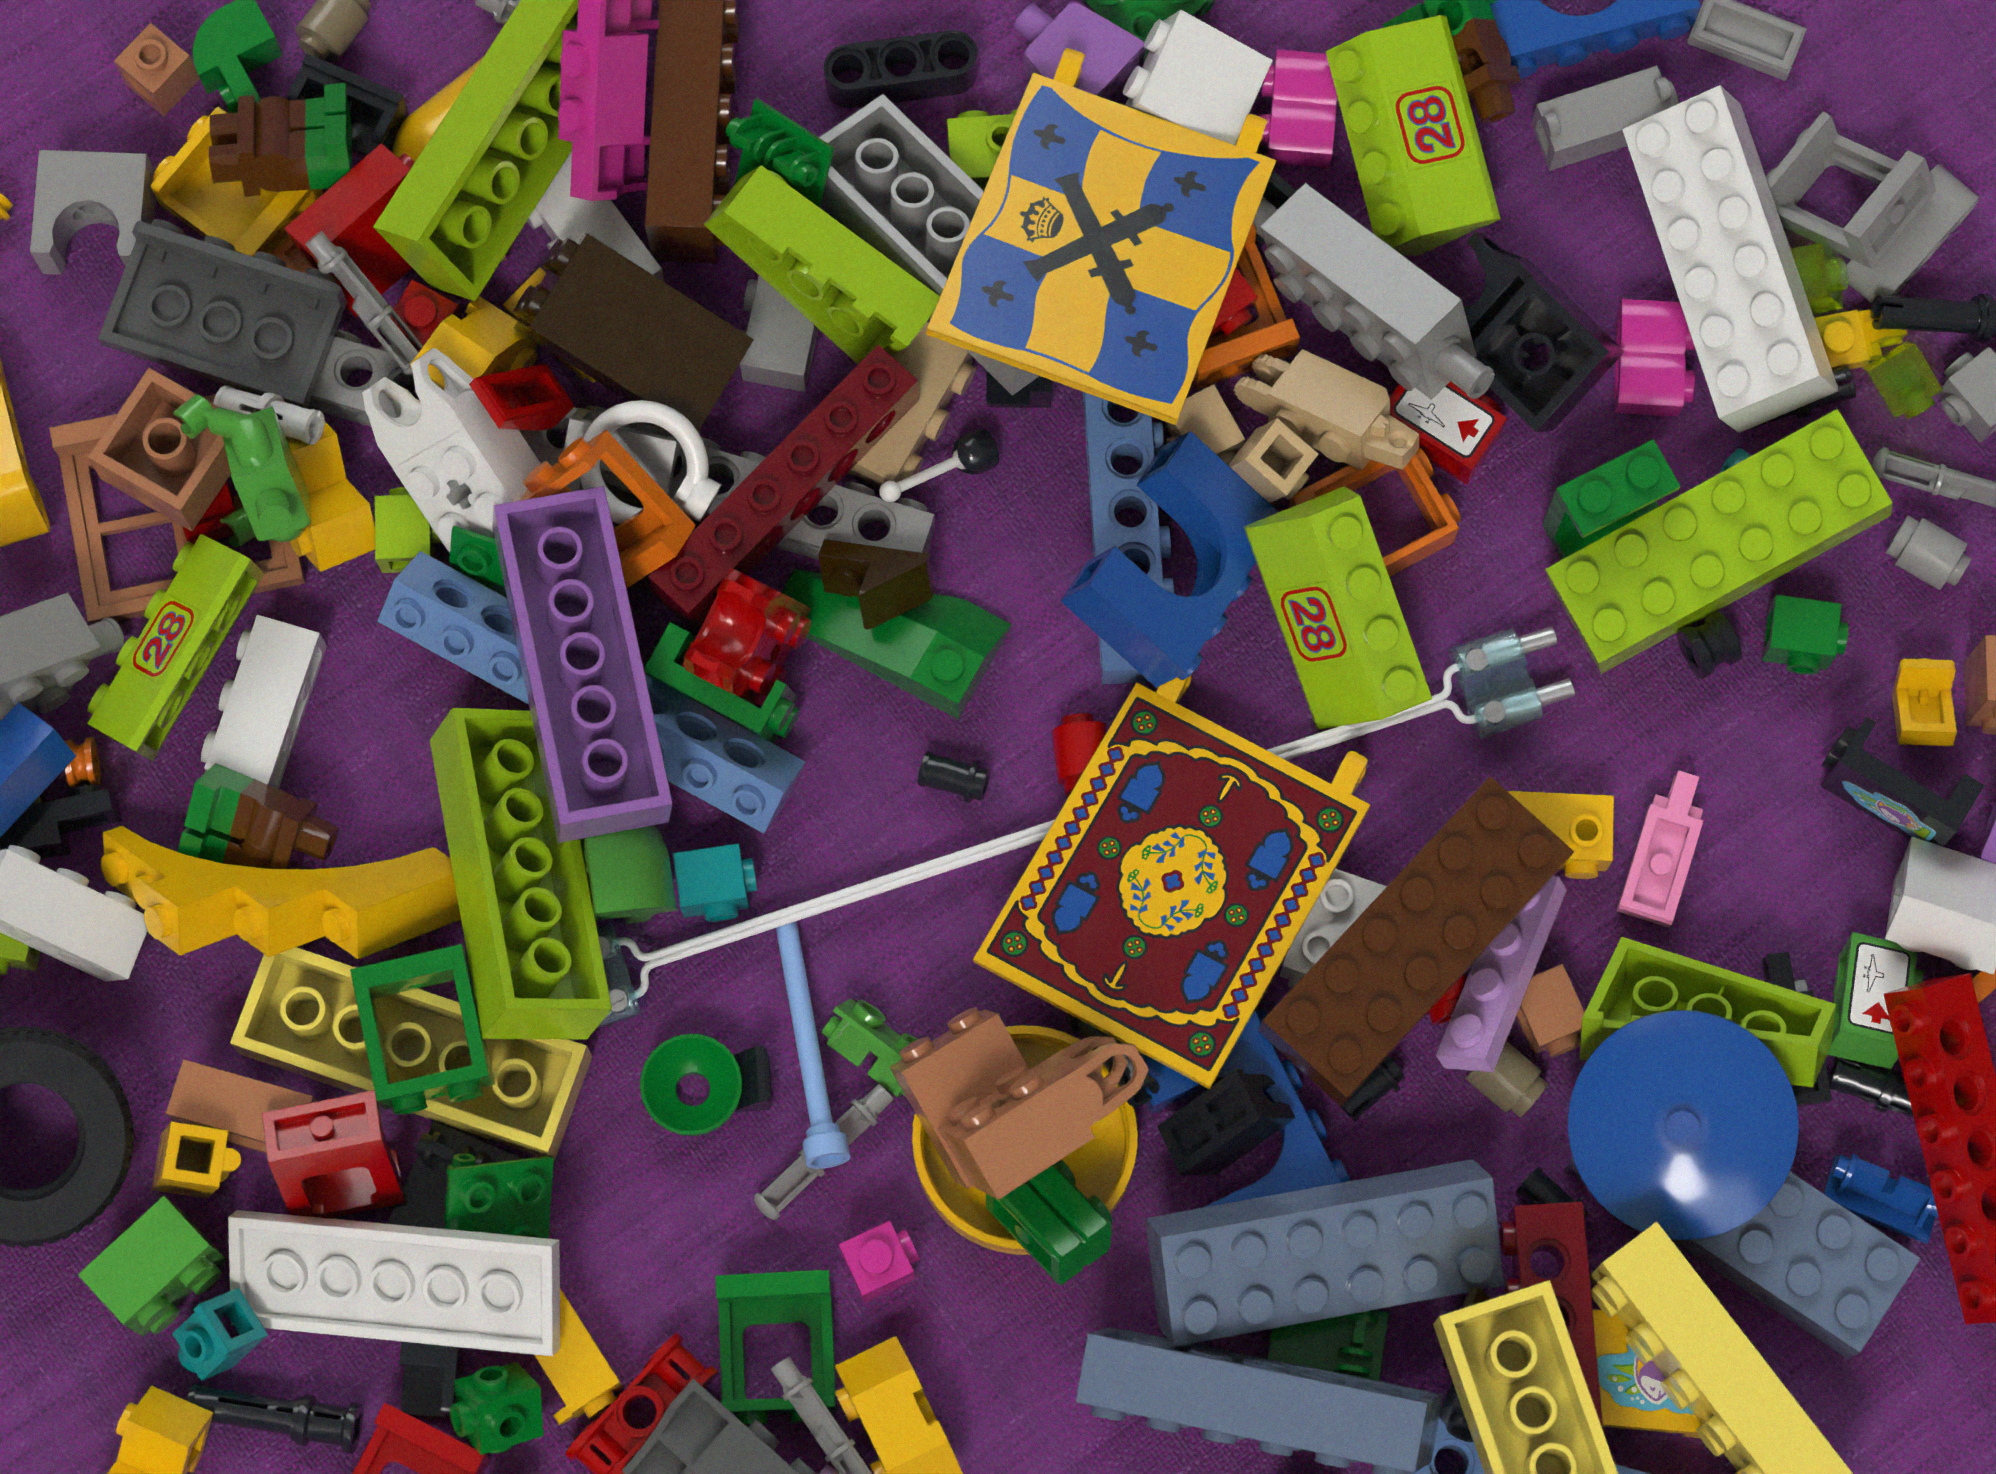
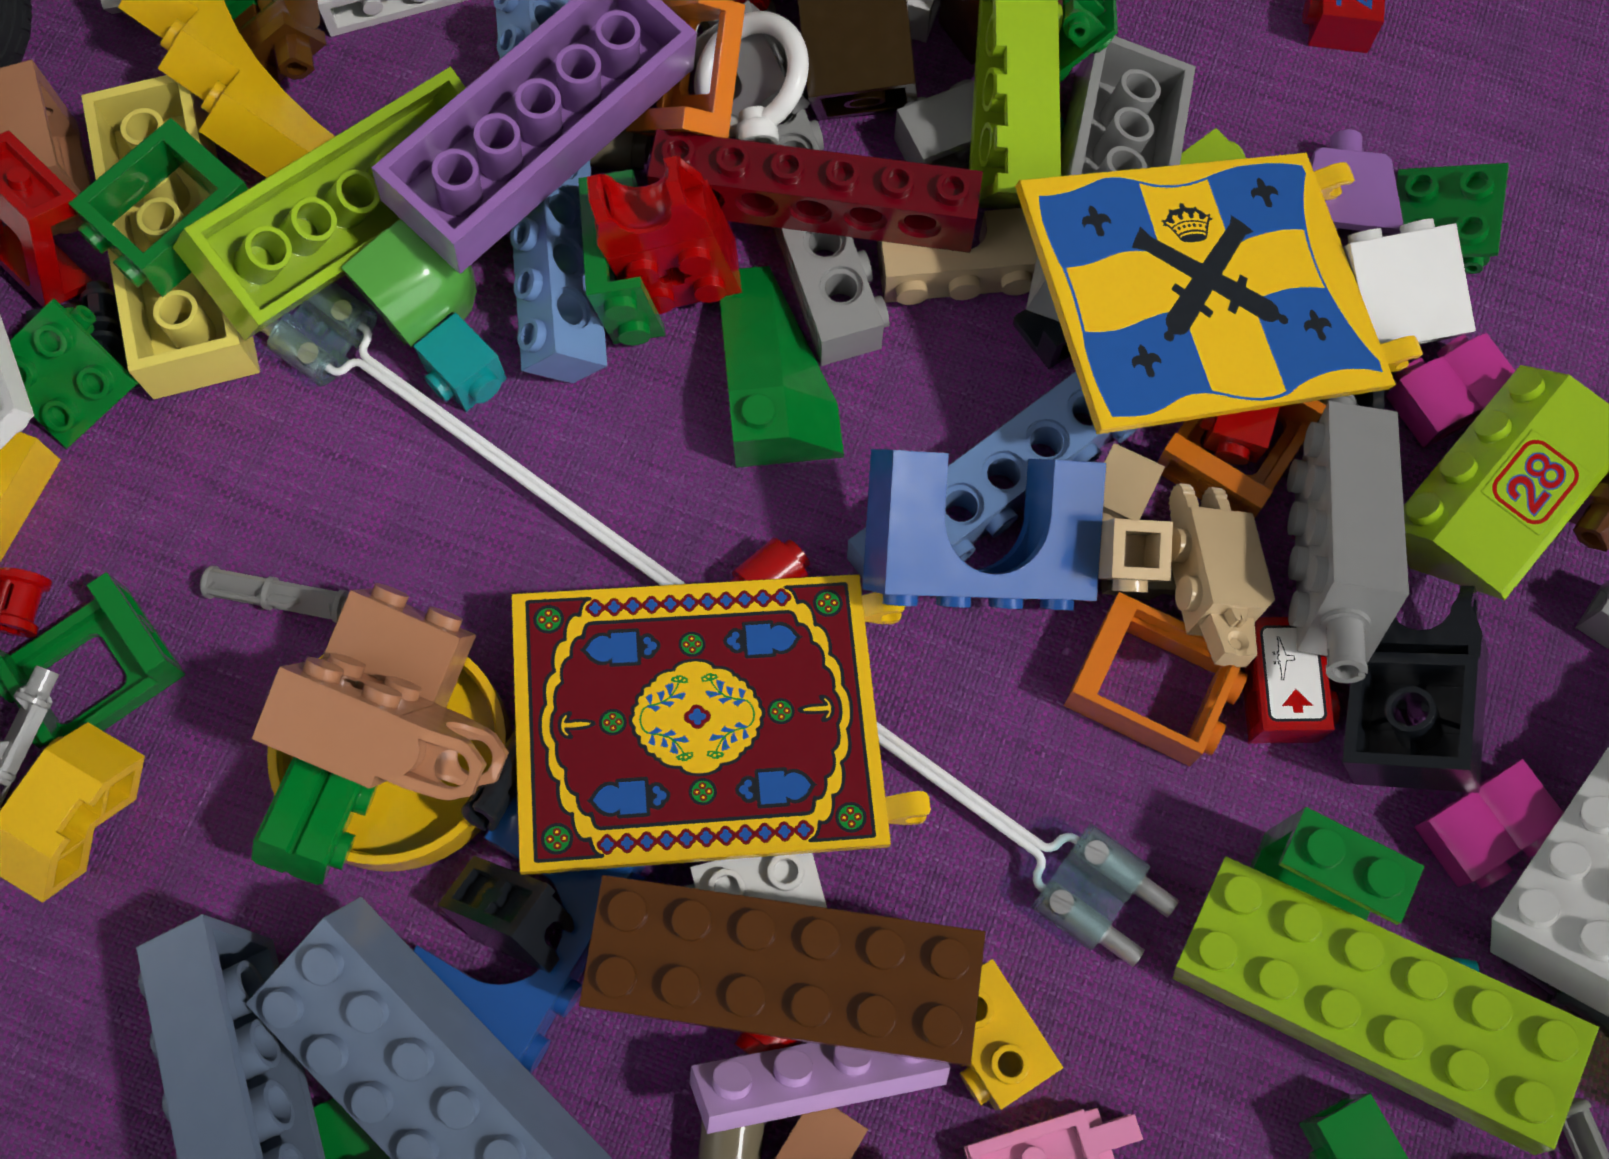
camera: 55 degrees right, 5 degrees down
(683, 1057) = (259, 437): green piece -> none
(756, 1079) = (315, 504): black slope -> none
(824, 1142) = (282, 584): light blue piece -> none
(864, 1032) = (411, 560): bright green hinge -> none
(879, 1260) = (205, 697): dark pink brick -> none
(881, 577) = (794, 315): dark brown slope -> none
(920, 51) = (1232, 82): black beam -> none
(954, 776) = (683, 501): black pin -> none
(972, 454) = (959, 328): hinge -> none
(1338, 610) = (1045, 696): lime slope -> none
(1378, 1084) = (644, 1031): black pin -> none
(1709, 645) = (1274, 1062): black wheel -> none

